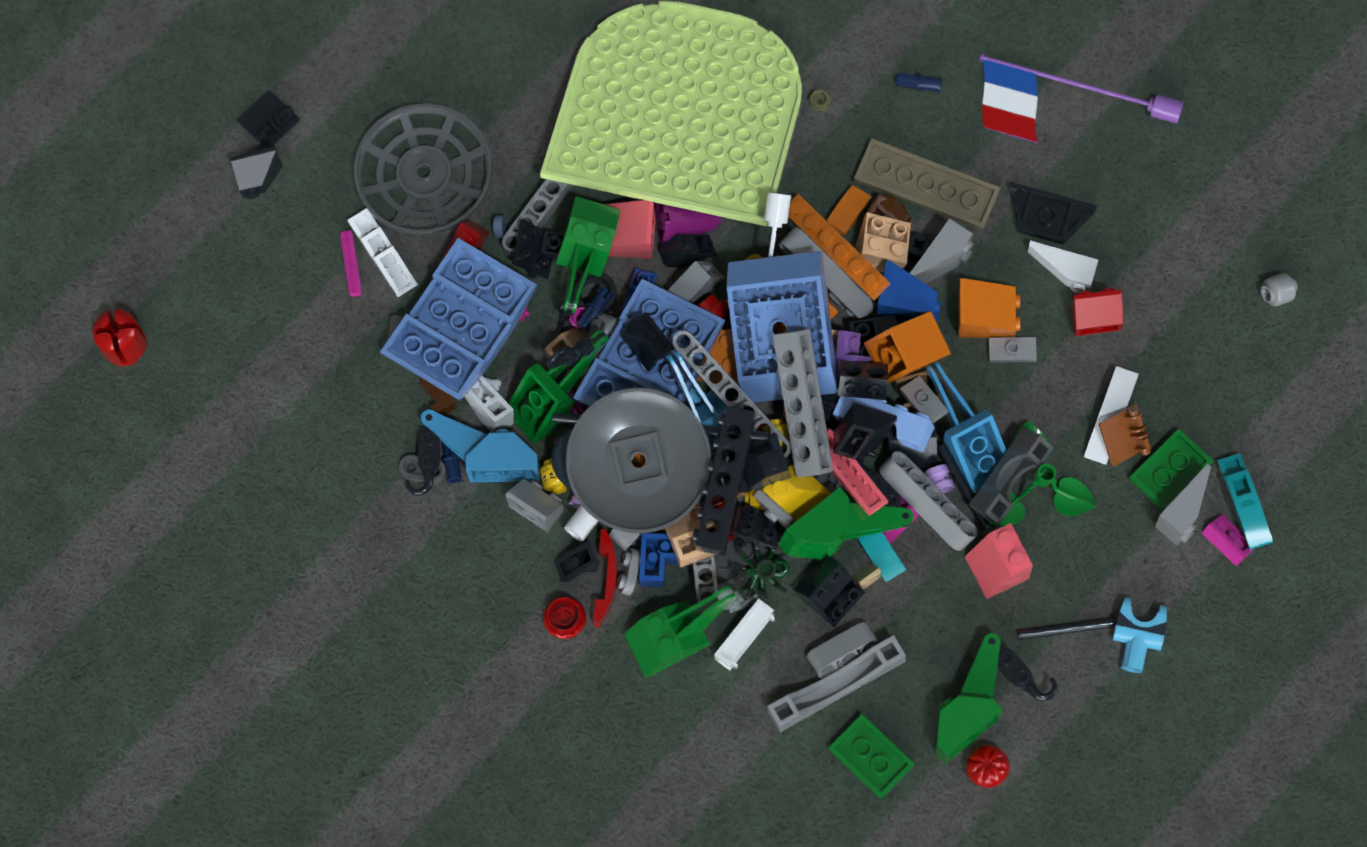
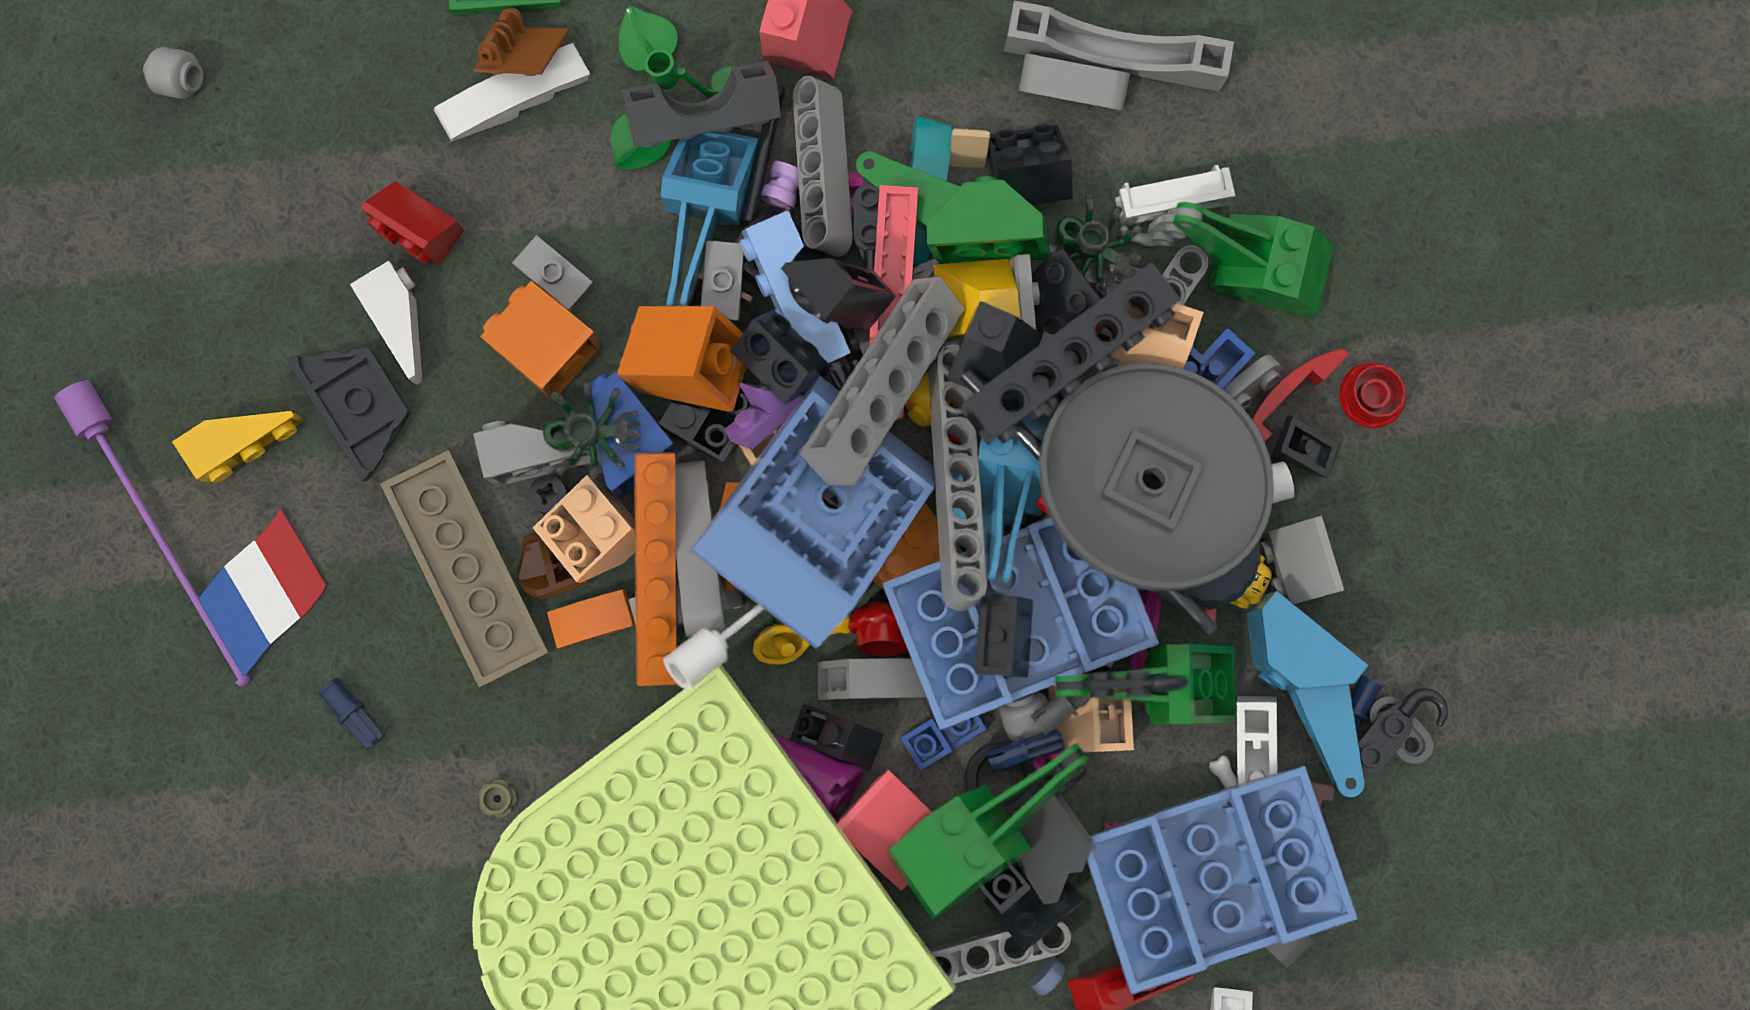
camera: 155 degrees left, 10 degrees up
(545, 274) = (1058, 848): none -> dark grey slope
(920, 272) = (583, 432): none -> animal
(1089, 148) = (223, 443): none -> yellow slope

